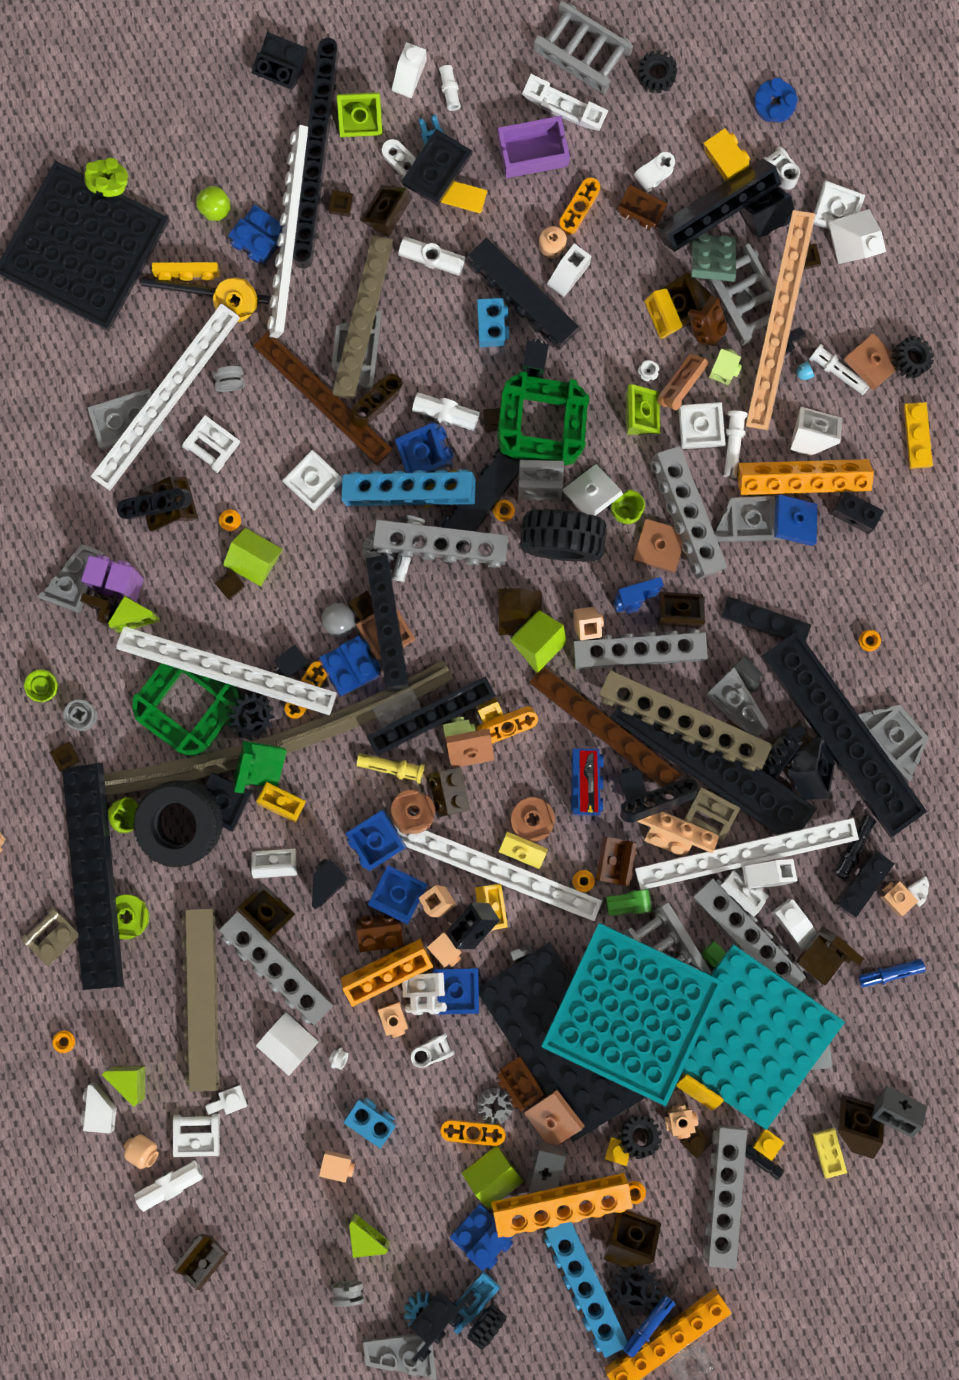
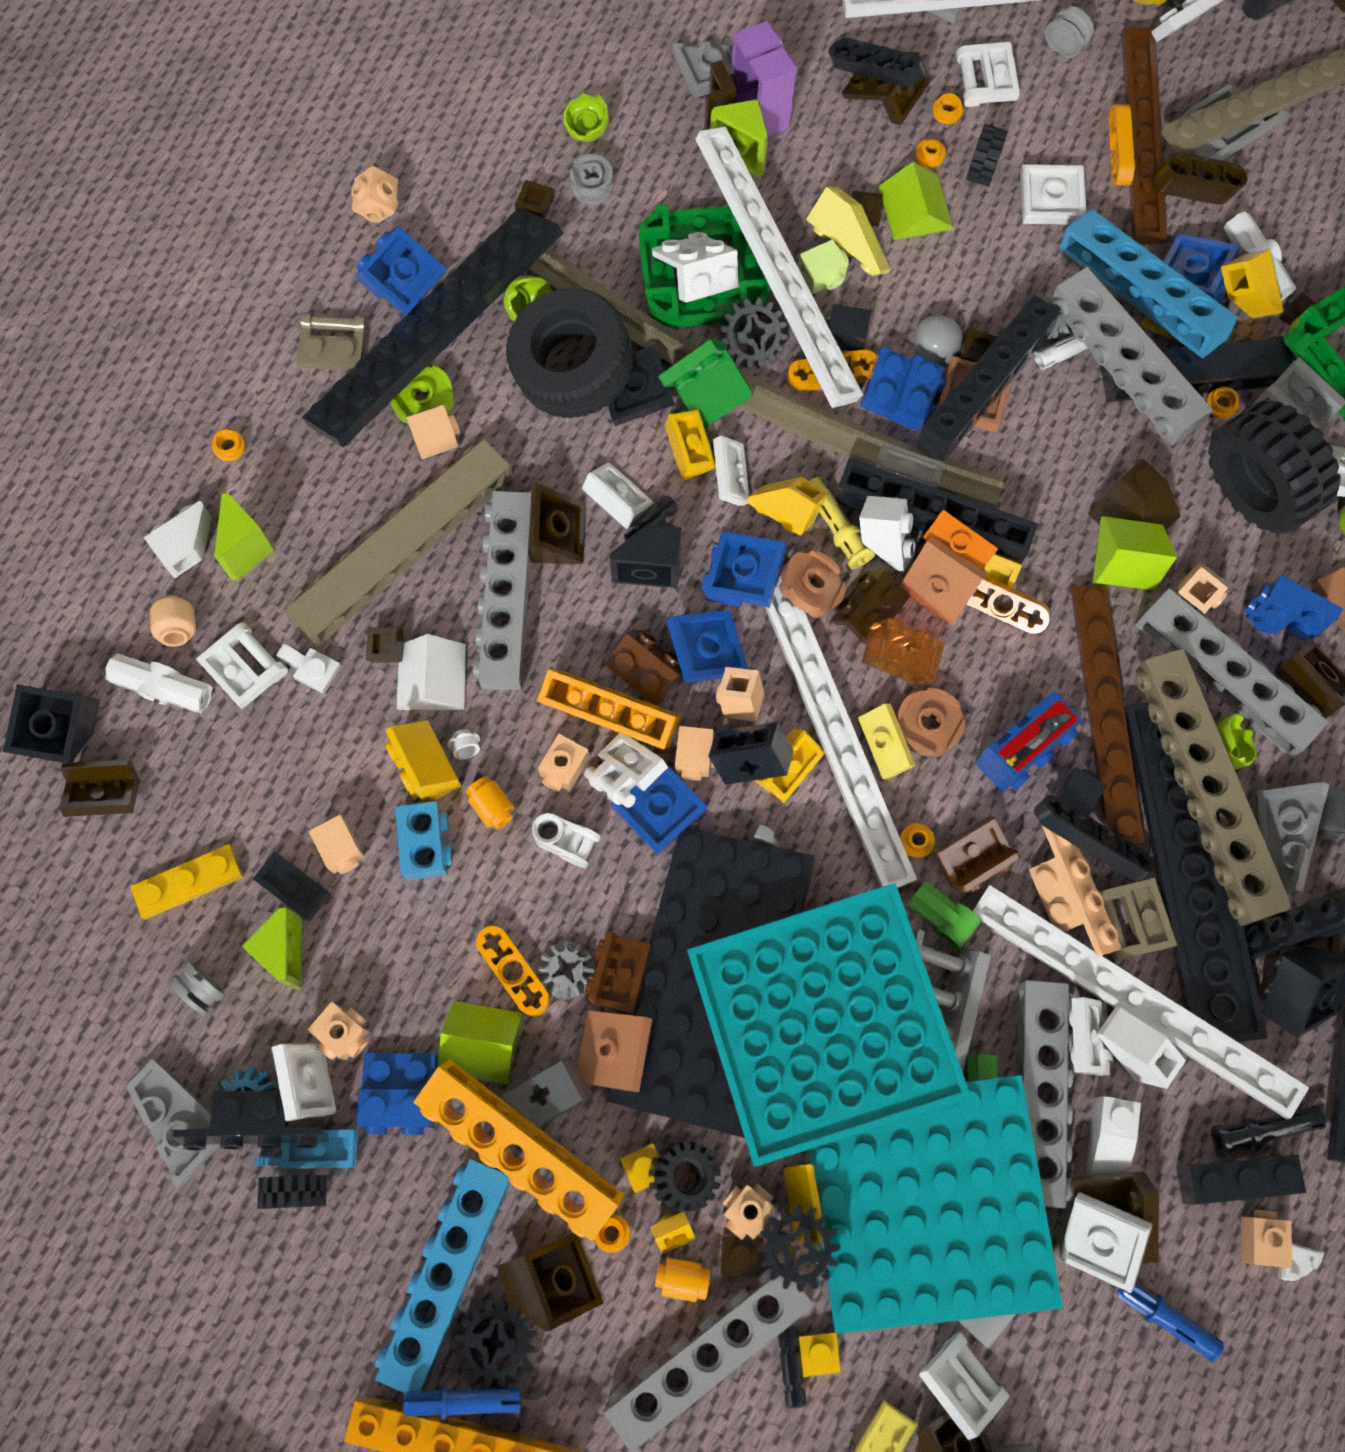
camera: 50 degrees right, 10 degrees down
(43, 866) = (399, 271): none -> blue plate
(144, 1258) = (50, 724): none -> black slope
(155, 930) = (433, 431): none -> light nougat brick
(186, 708) = (702, 265): none -> white bracket
(210, 479) = (950, 102): none -> light orange plate
(235, 608) = (844, 221): none -> light yellow slope
(245, 641) = (823, 267): none -> yellowish green brick
(250, 1054) = (384, 644): none -> dark brown plate
(261, 497) = (986, 155): none -> black tyre
(286, 1254) = (186, 882): none -> yellow plate
(304, 860) = (665, 507): none -> black axle
(315, 795) = (731, 470): none -> white plate
(317, 415) = (1122, 144): none -> light orange beam
(331, 1089) = (425, 765): none -> yellow slope
(336, 1205) = (292, 886): none -> black plate
(359, 783) = (790, 502): none -> yellow slope
(381, 1072) = (490, 803): none -> light orange brick
(420, 751) = (887, 529): none -> white slope
(427, 1249) = (327, 1030): none -> light nougat brick
(440, 1278) = (303, 1081): none -> white plate
(457, 436) = (1253, 284): none -> yellow slope
(460, 723) = (961, 539): none -> orange plate
(498, 796) = (903, 651): none -> clear orange brick
(658, 1164) = (672, 1231): none -> yellow plate
(674, 684) = (1237, 741): none -> lime hair
(683, 1178) = (682, 1280): none -> light orange brick
(710, 1120) = (783, 1240): none -> black gear
(835, 973) = (1105, 1242): none -> white plate
(837, 1099) = (957, 1389): none -> white plate

